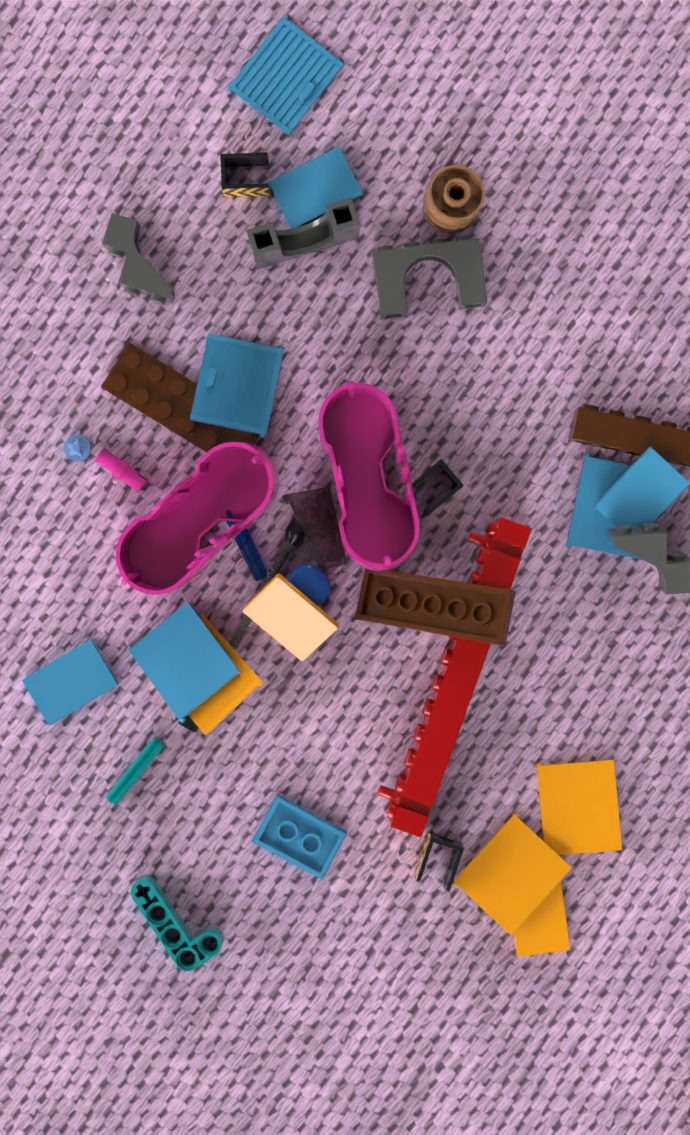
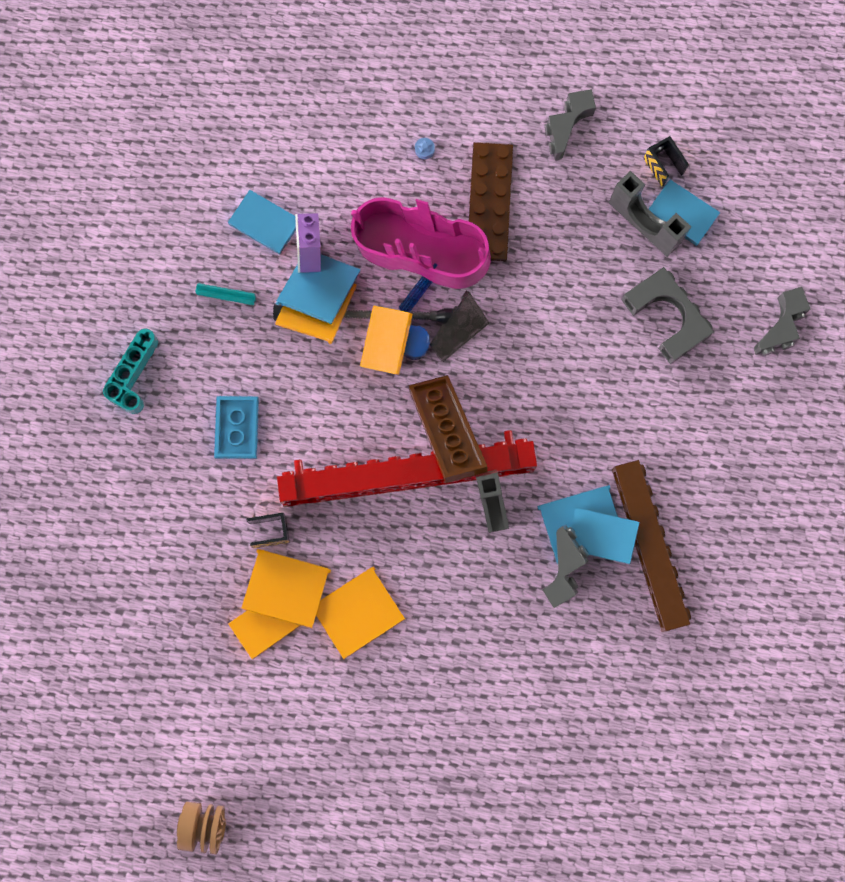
camera: 55 degrees right, 10 degrees down
(121, 470) = (425, 181): dark pink pin -> none
(128, 648) = (308, 243): none -> medium lavender piece
(237, 384) = (524, 227): dark azure piece -> none
(285, 76) = (745, 156): dark azure piece -> none
(358, 433) = (530, 324): dark pink piece -> none
(452, 477) = (533, 381): black piece -> none
(453, 199) = (729, 301): medium nougat wheel -> none
(517, 156) = (784, 333): none -> dark grey arch
(541, 597) = (492, 501): none -> dark grey arch

